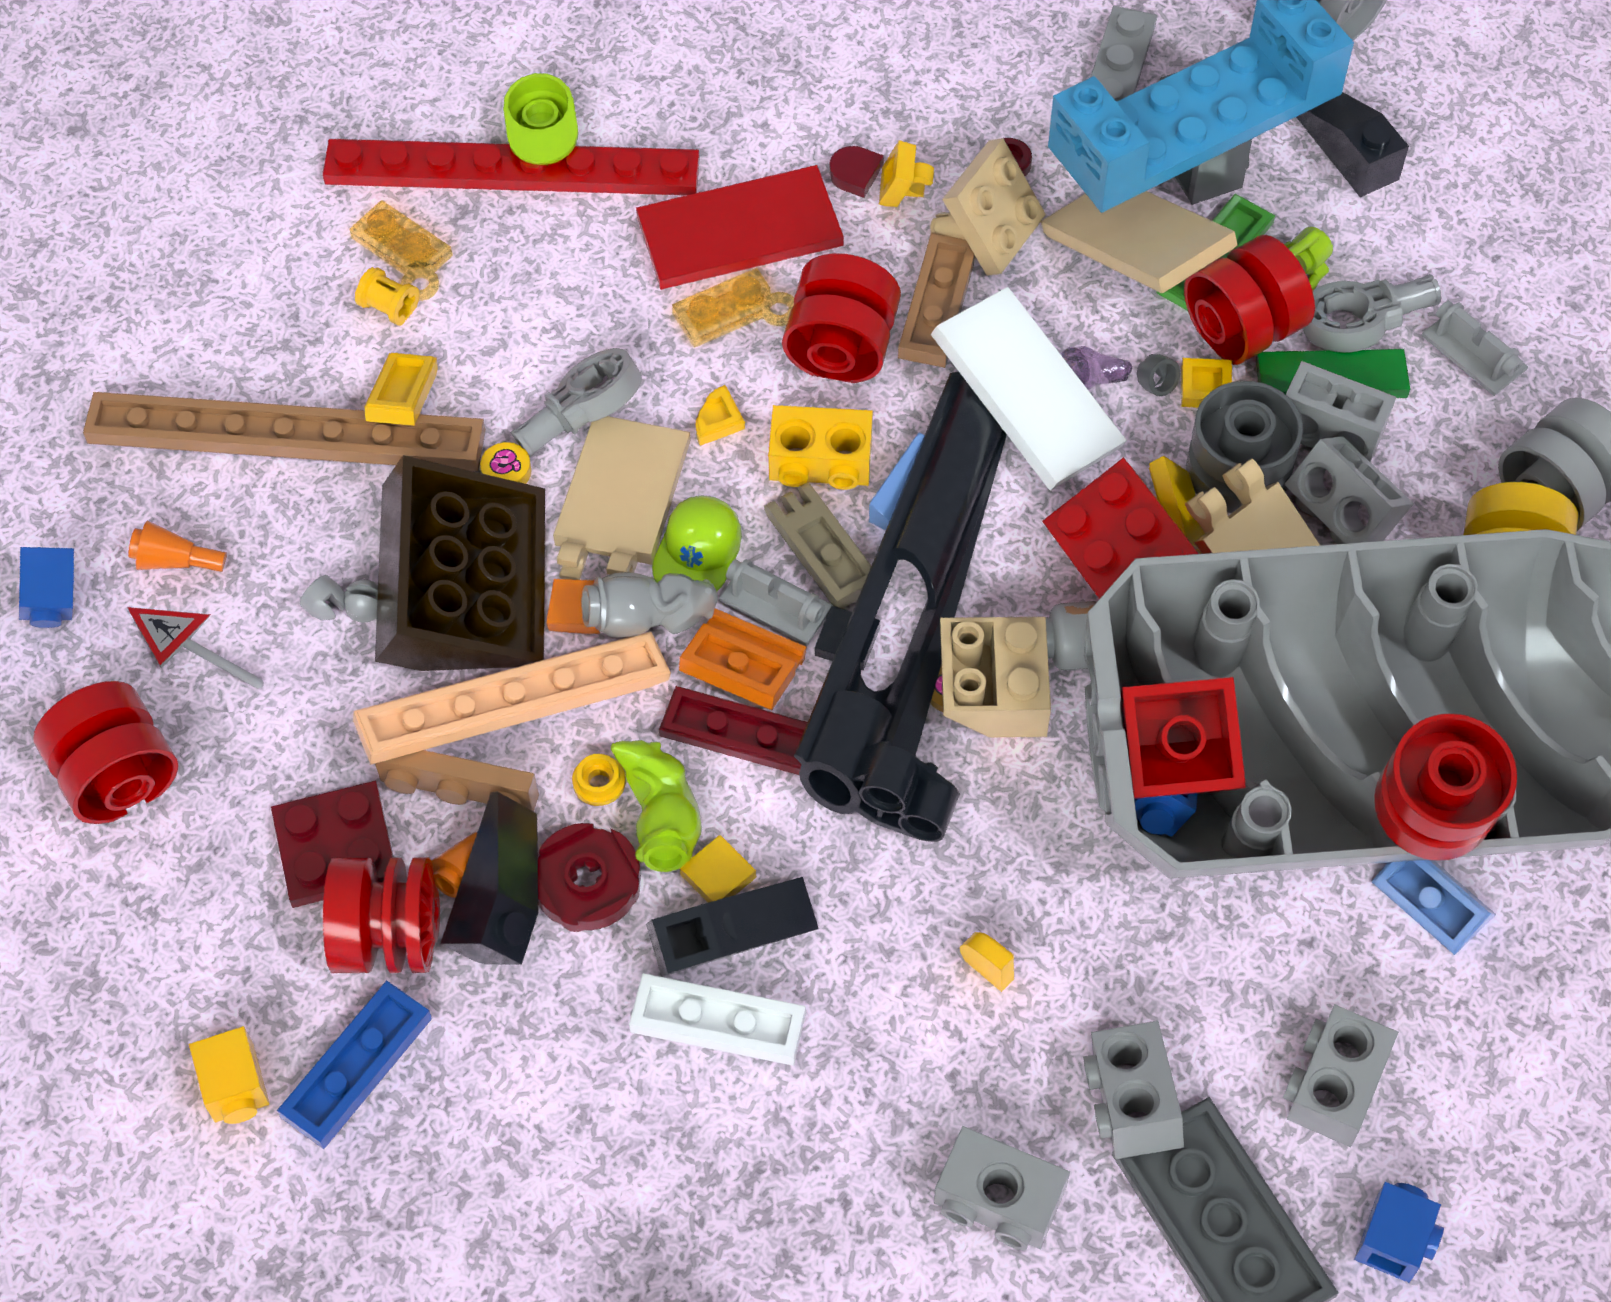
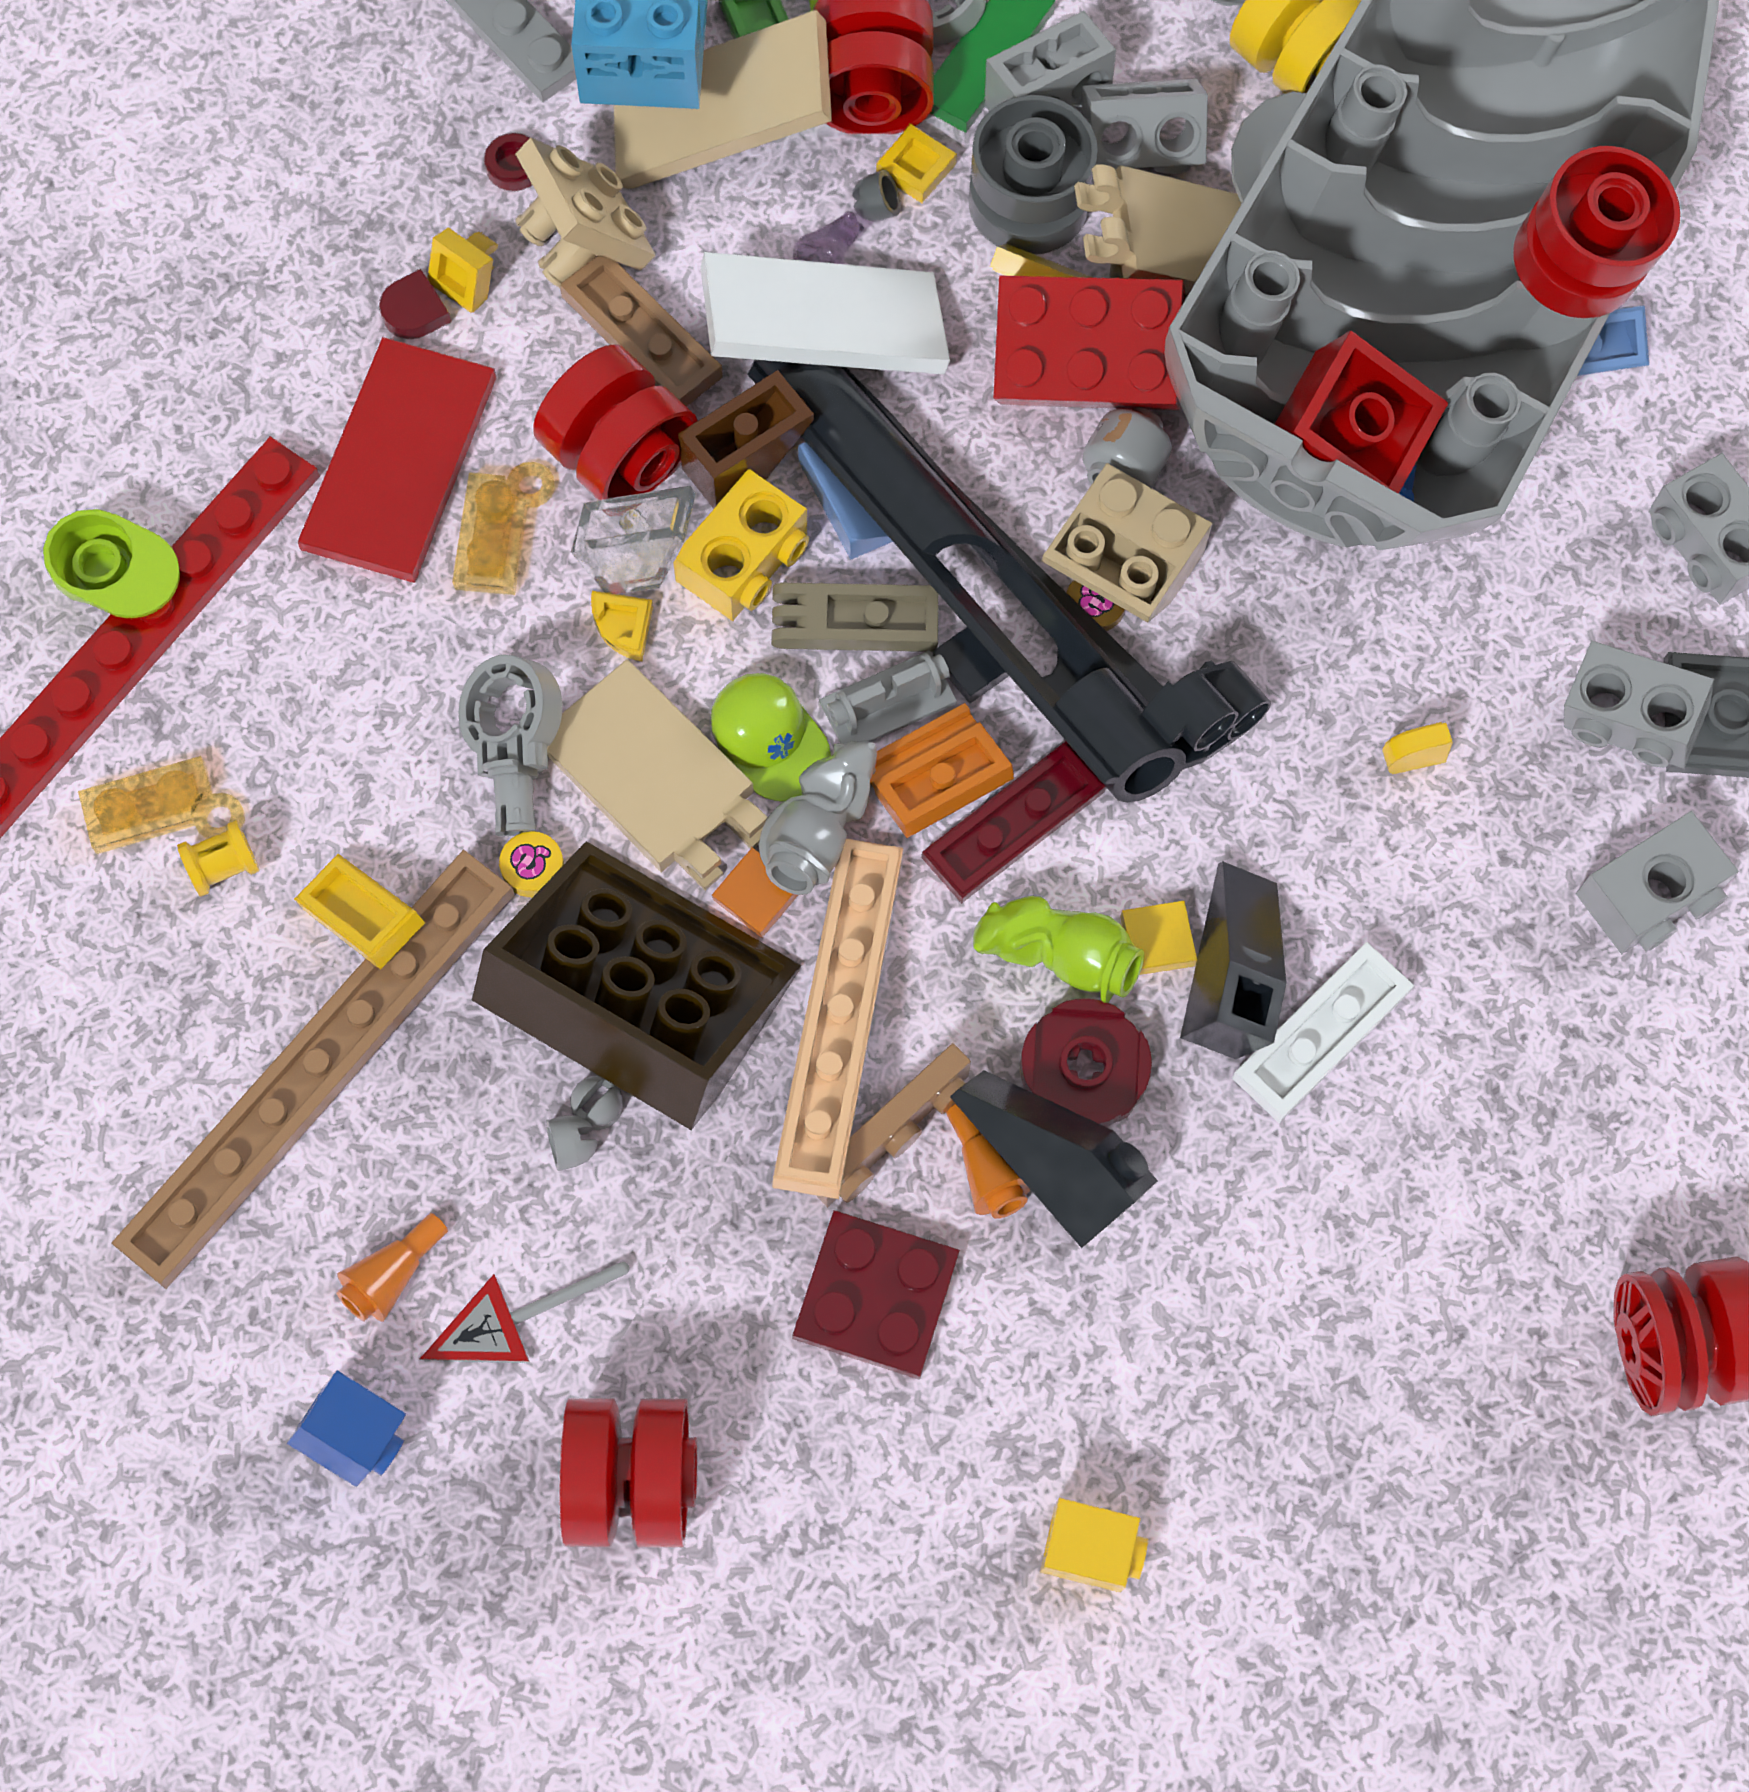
camera: 60 degrees left, 10 degrees up
(354, 1064) = (1153, 1411): blue plate -> none
(372, 914) = (1027, 1275): red wheel -> none
(598, 765) = (979, 970): yellow plate -> none
(766, 374) = (633, 538): none -> clear slope
(896, 392) = (742, 435): none -> reddish brown slope

